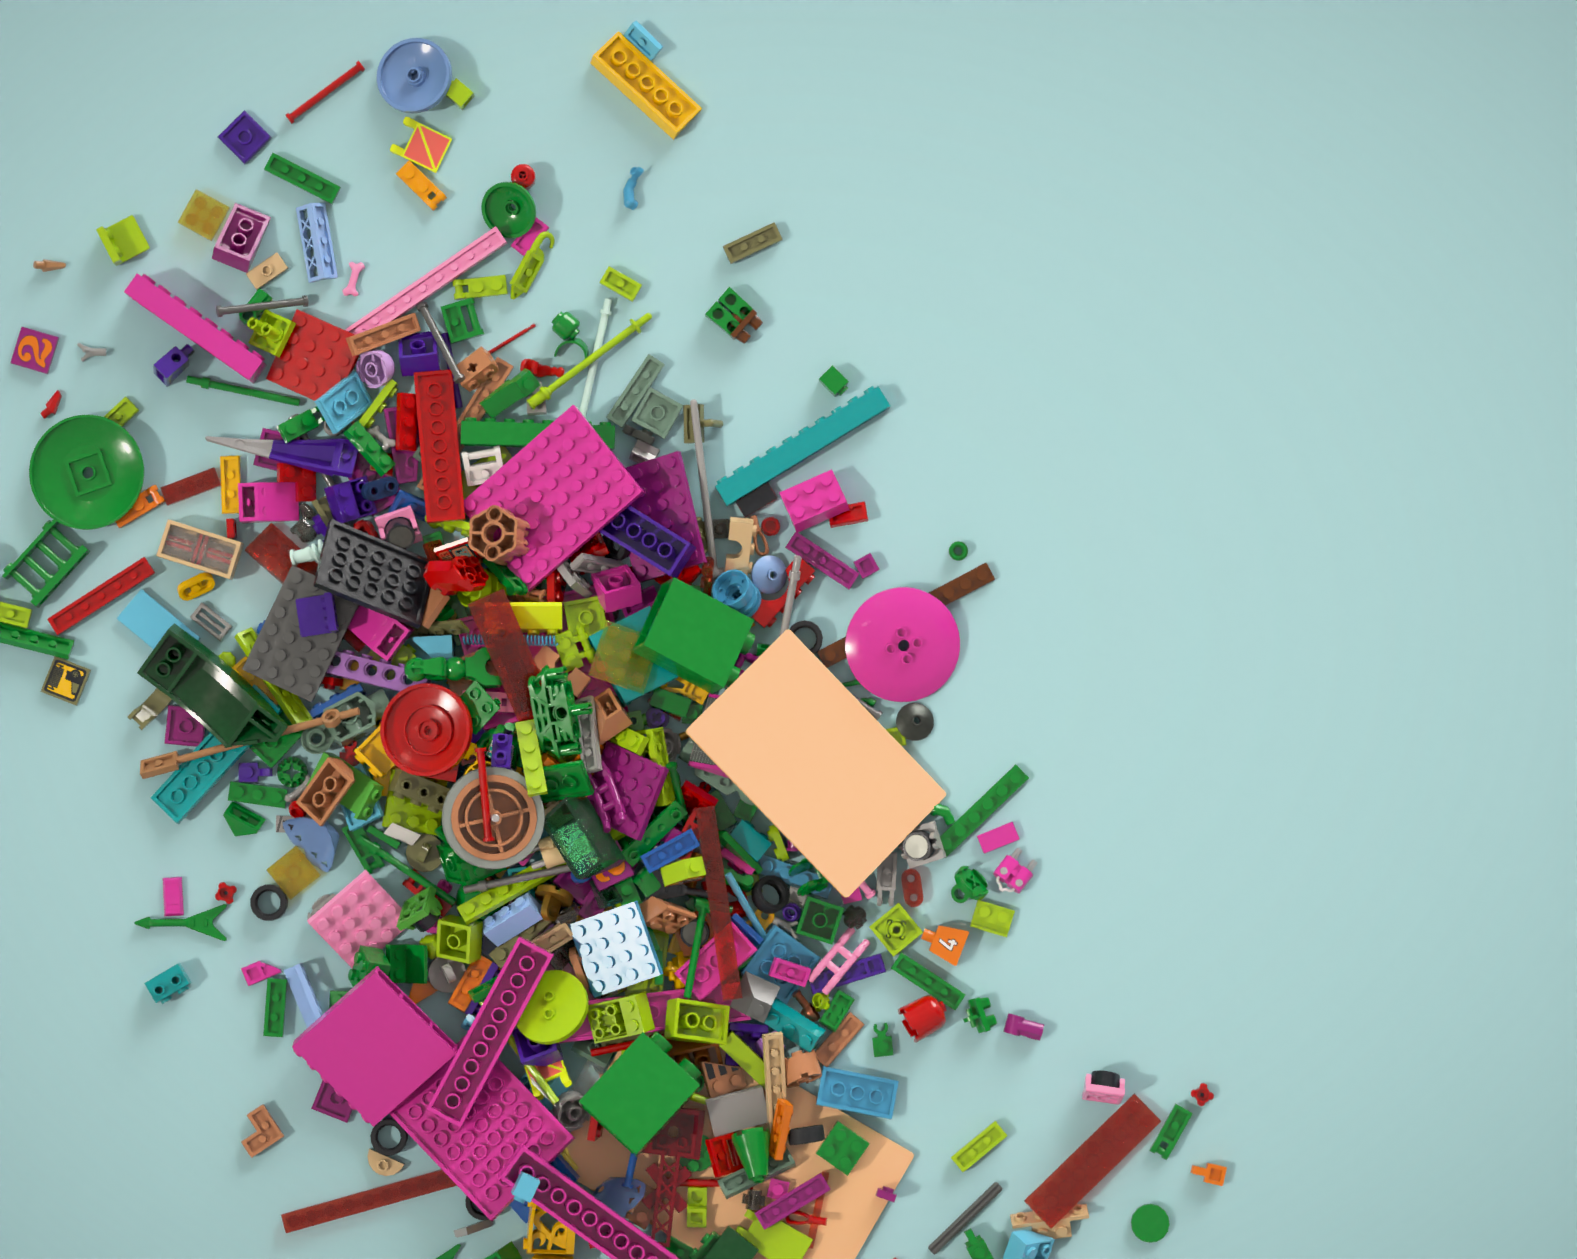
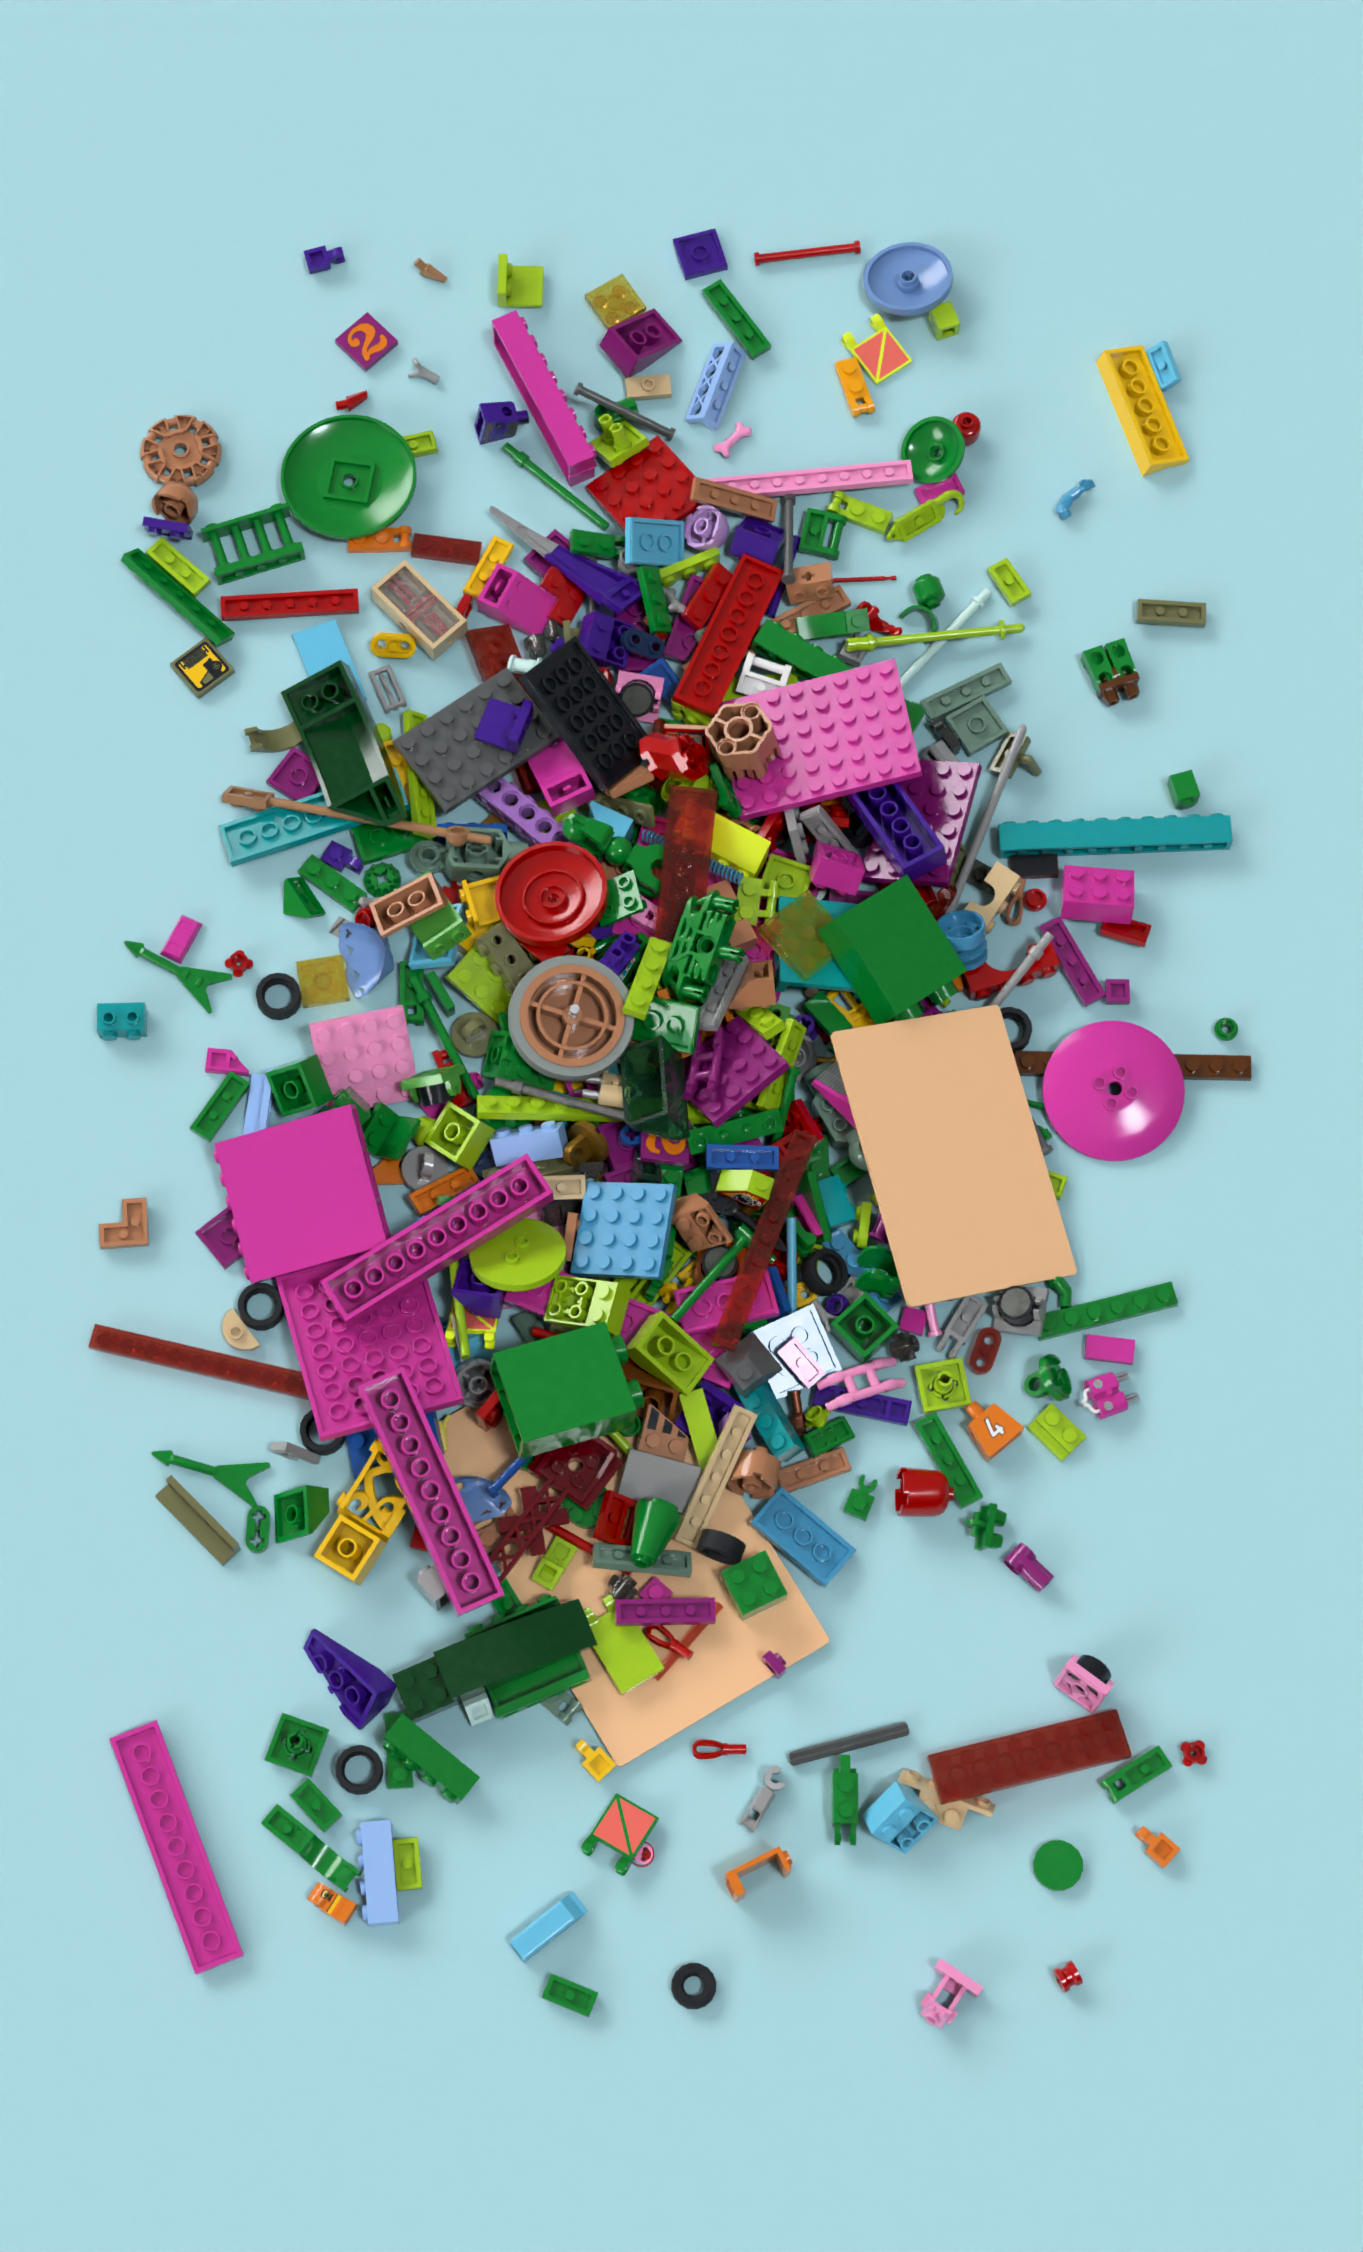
camera: 30 degrees right, 15 degrees down
(325, 966) = (299, 1085): none -> green brick
(330, 683) = (477, 809): red plate -> none
(402, 834) = (462, 997): white sticker -> none
(484, 794) = (597, 938): red bar -> none
(525, 1187) = (380, 1409): medium azure brick -> none
(761, 574) = (998, 947): light blue dish -> none
(780, 1128) = (696, 1522): orange plate -> none
(907, 726) = (1076, 1185): pearl dark grey dish -> none
(979, 1146) = (907, 1671): lime plate -> none

